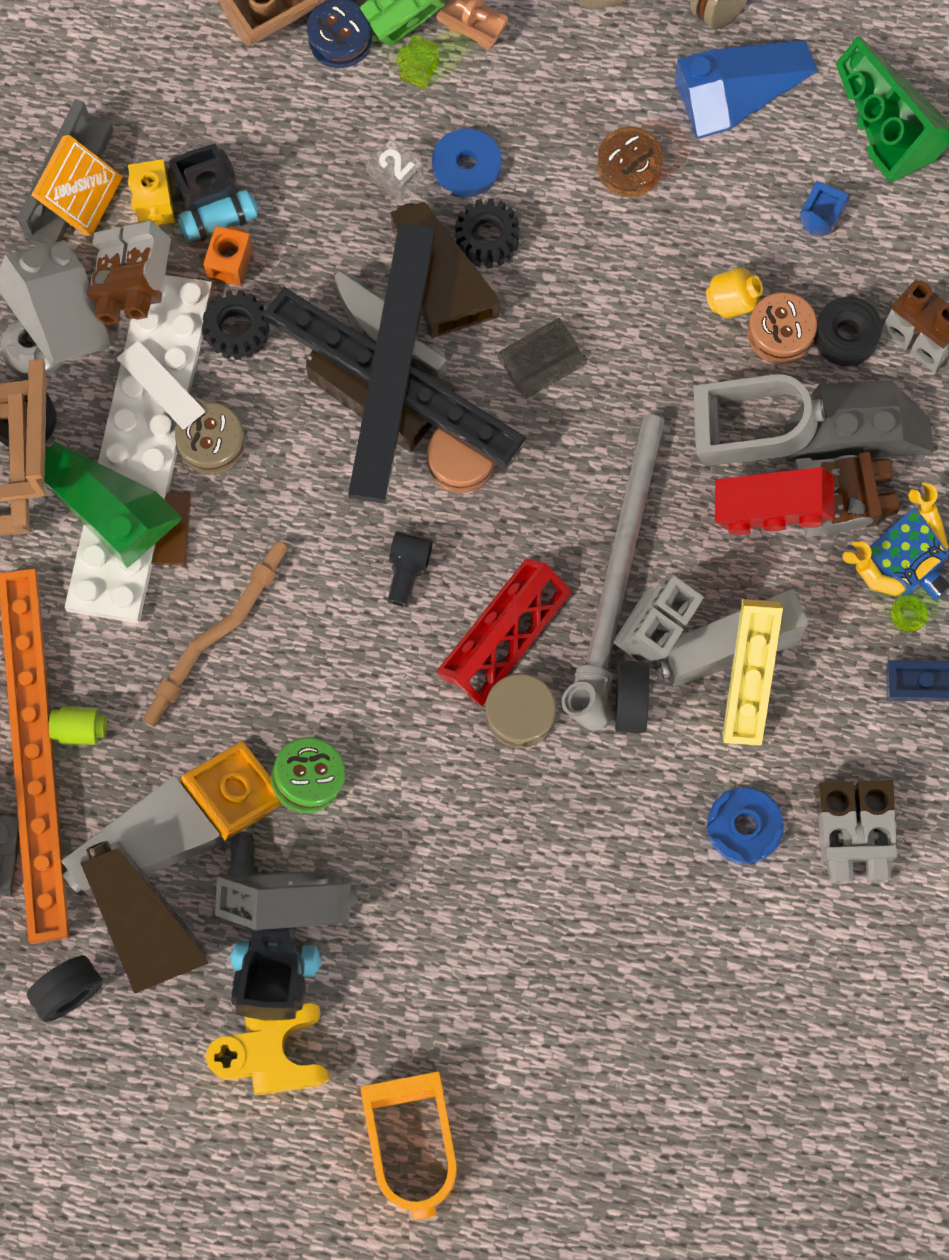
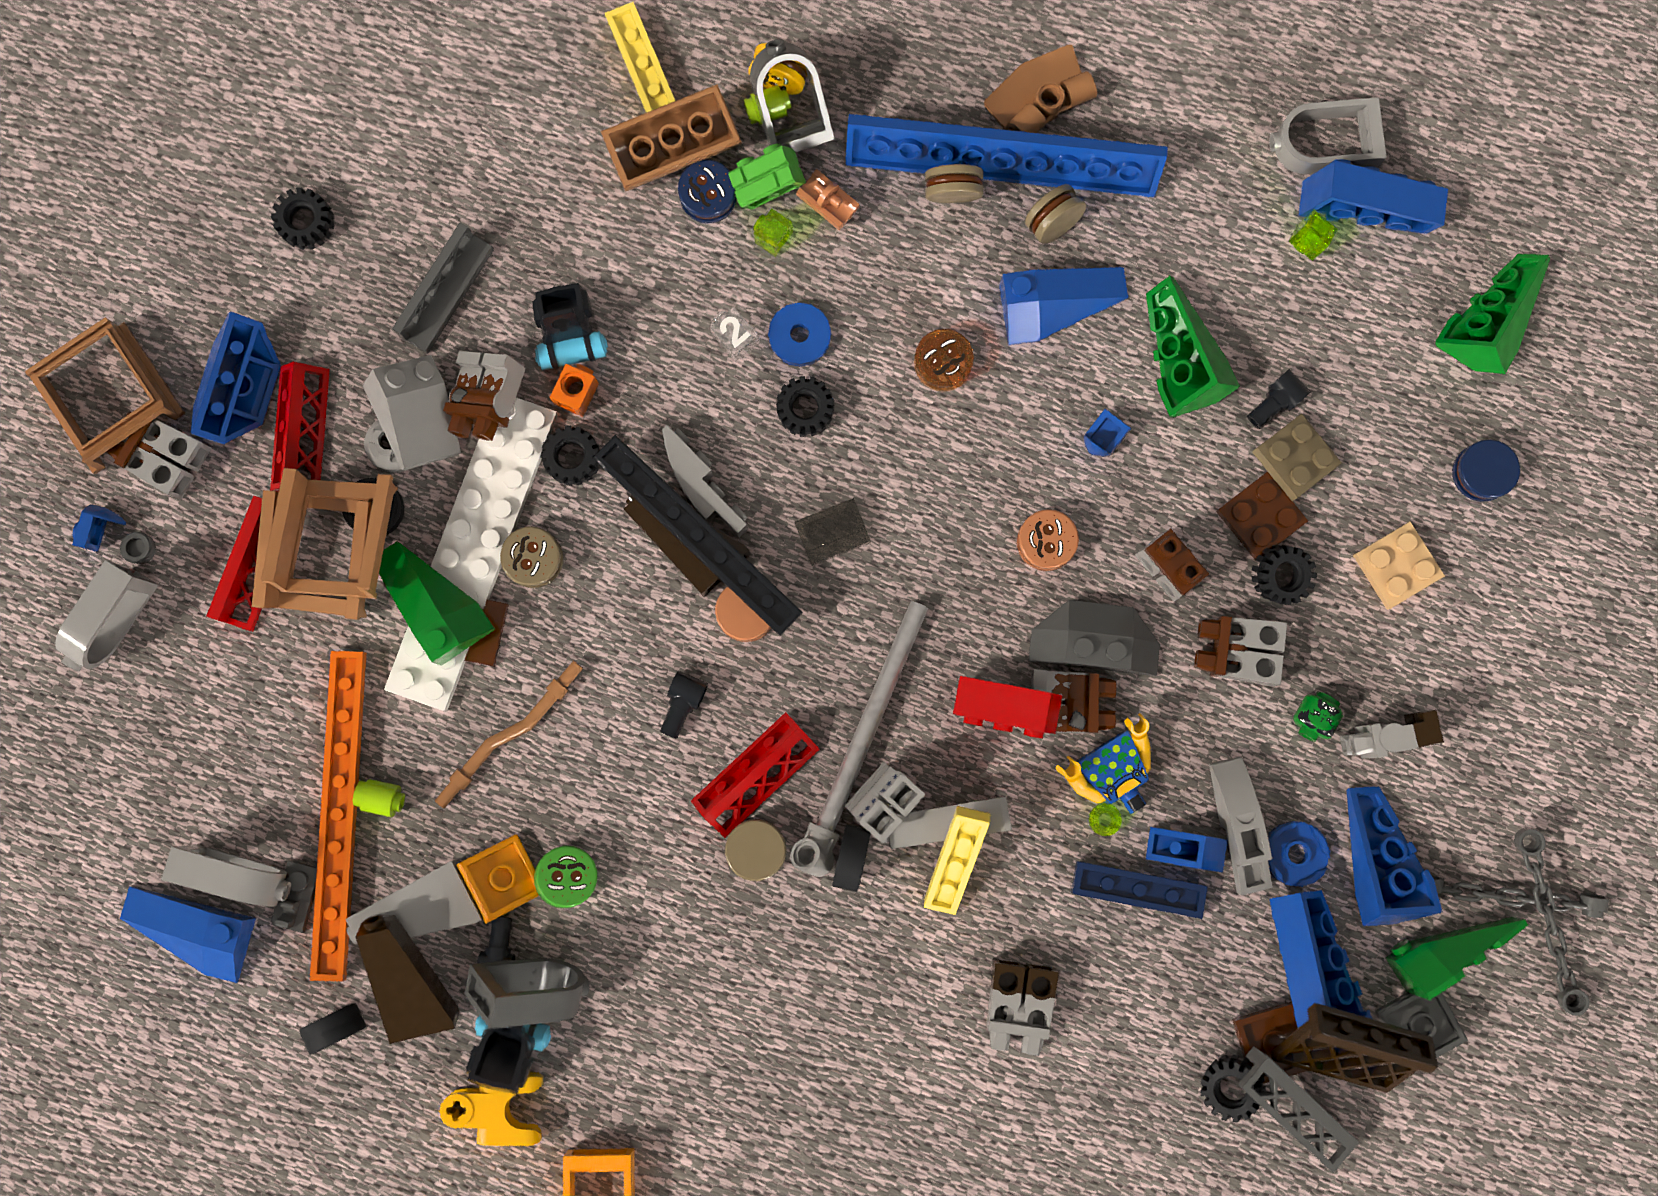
camera: 10 degrees right, 10 degrees up
(77, 185) = (451, 303): light orange tile -> none
(151, 192) = (515, 320): yellow head -> none
(161, 385) = (495, 503): white sticker -> none
(391, 364) = (696, 524): black tile -> none
(454, 289) = (758, 443): dark brown slope -> none
(707, 419) = (964, 621): light grey window -> none
(734, 292) = (1011, 502): yellow head -> none
(740, 847) = (908, 977): blue tile -> none
(853, 312) = (1117, 540): black tyre -> none

